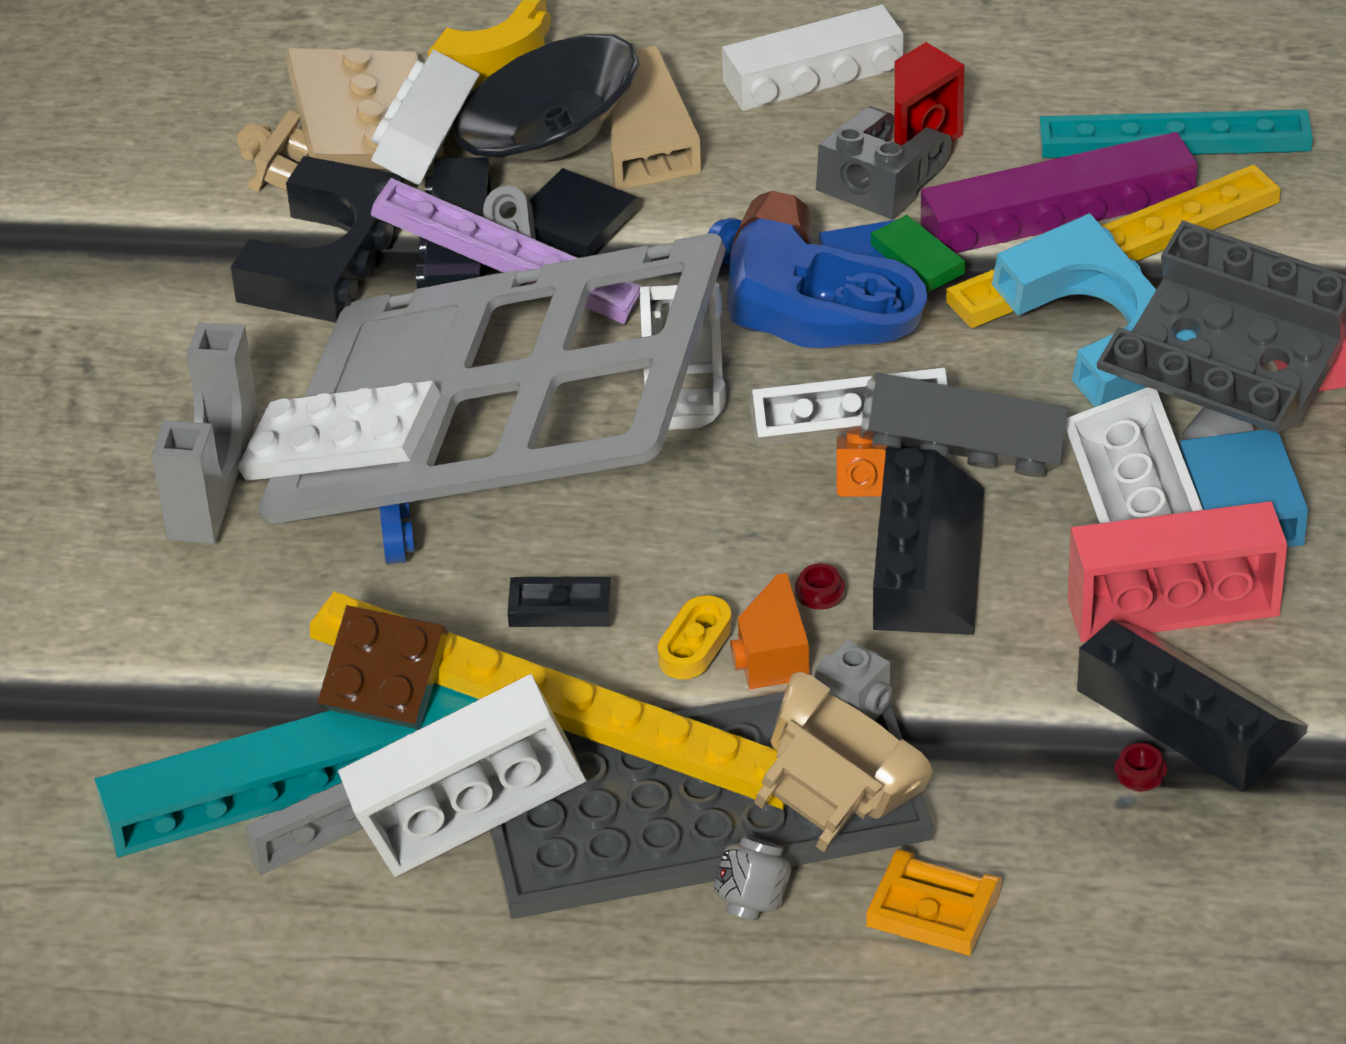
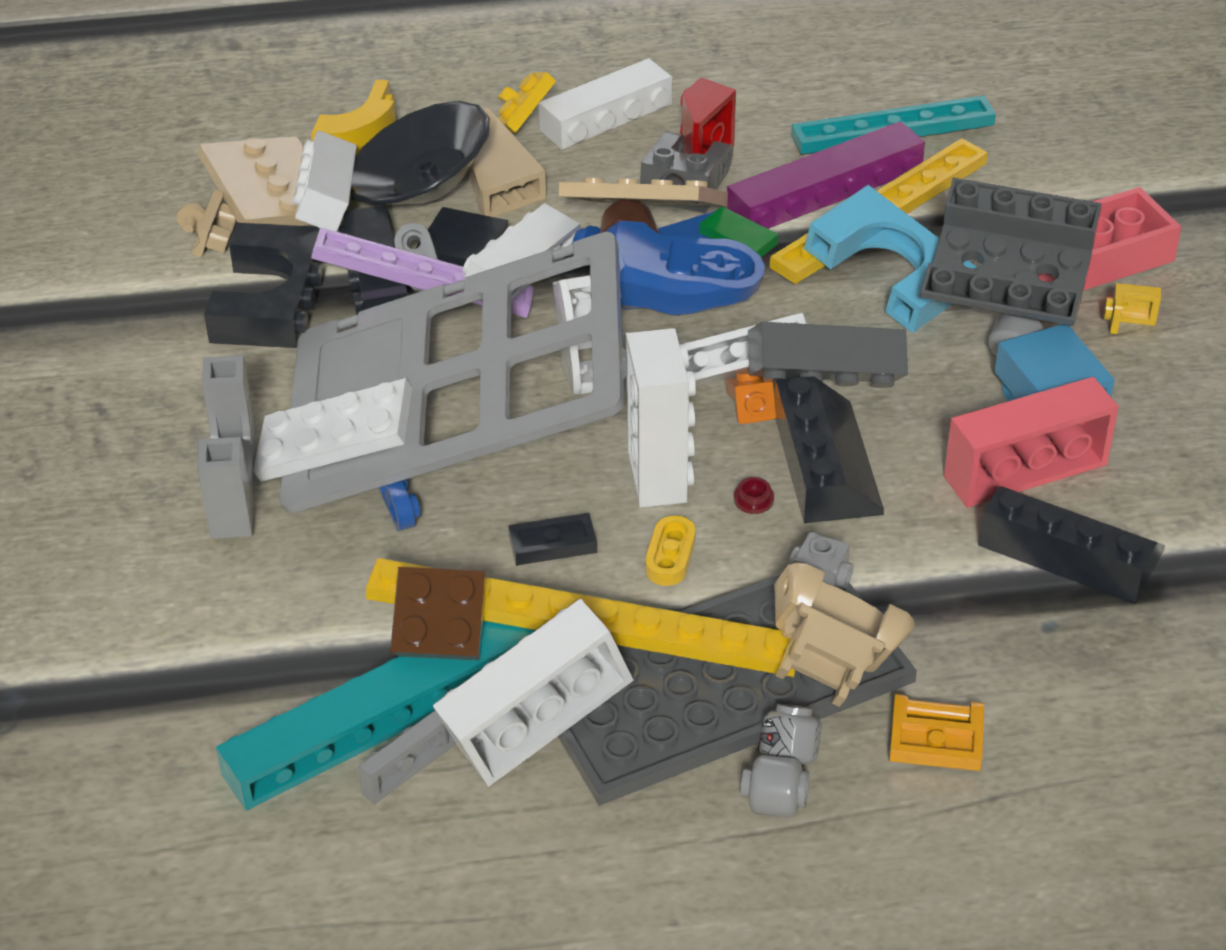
camera: 15 degrees left, 0 degrees up
(652, 222) = (536, 233): none -> white brick
(704, 44) = (520, 105): none -> yellow plate
(714, 473) = (659, 417): none -> white brick
(716, 930) = (775, 786): none -> light grey head
(771, 637) = (735, 541): orange slope -> none
(824, 186) = (658, 192): none -> tan plate
(1131, 459) = (965, 363): white brick -> none
(1140, 767) = (1055, 597): dark red plate -> none

